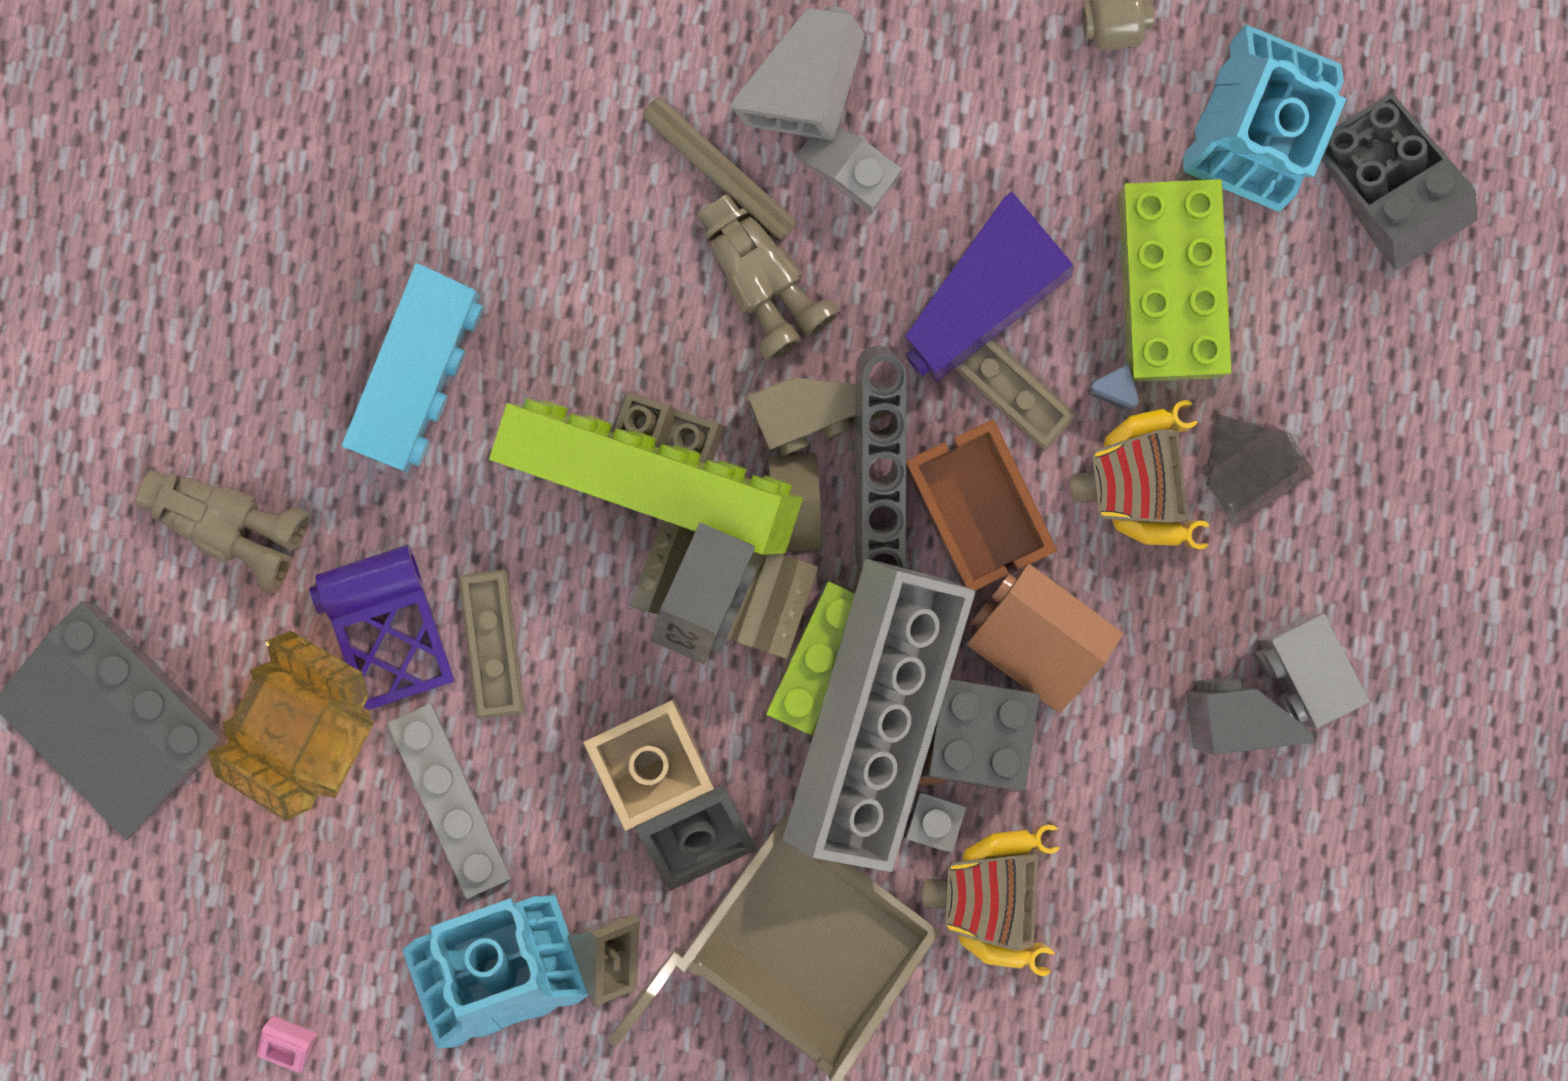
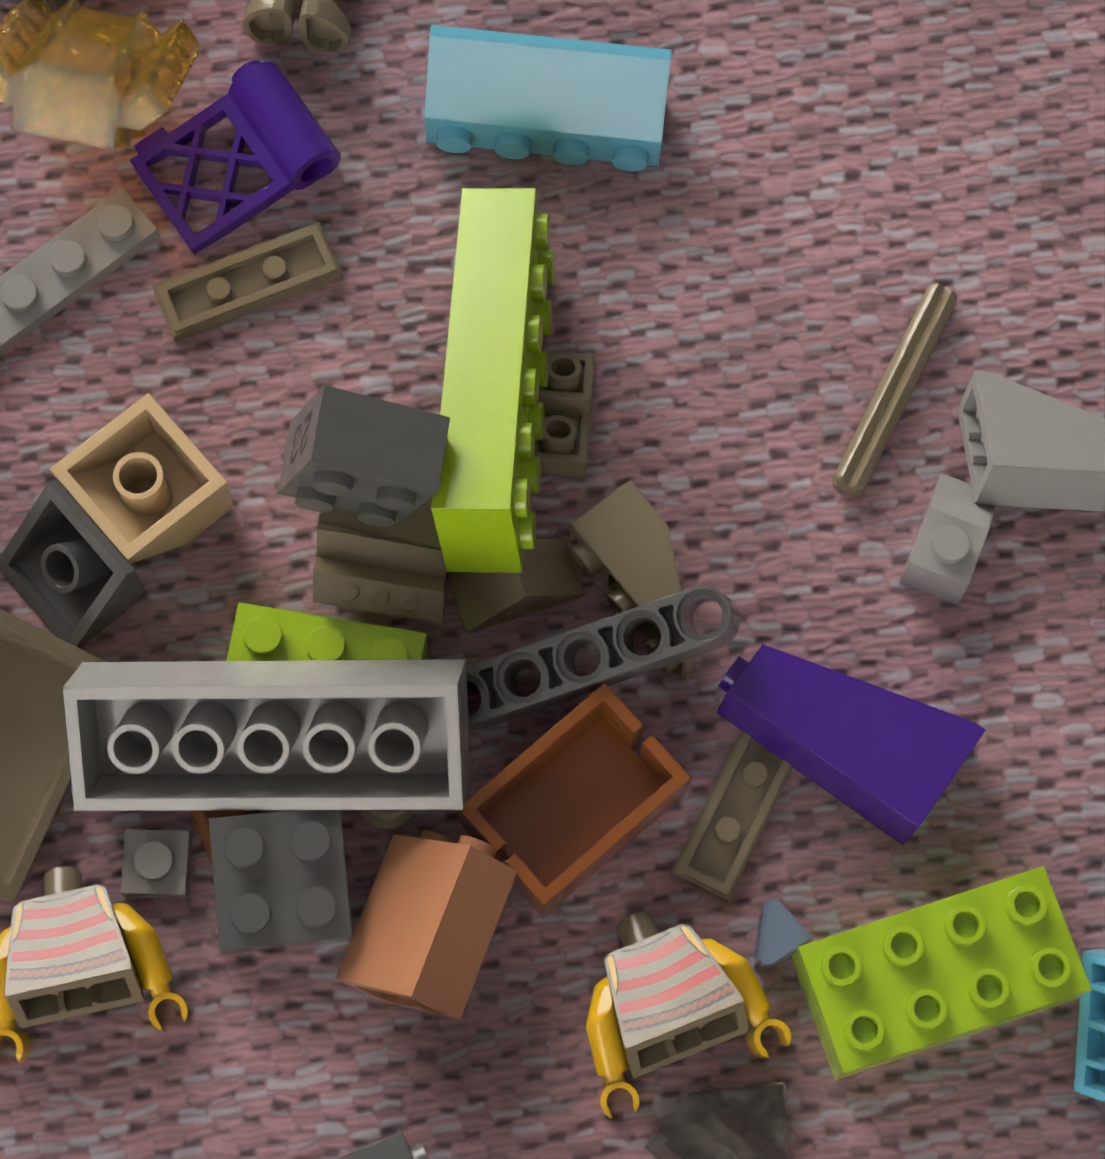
camera: 75 degrees right, 15 degrees down
(758, 272) = (785, 465): dark tan piece -> none

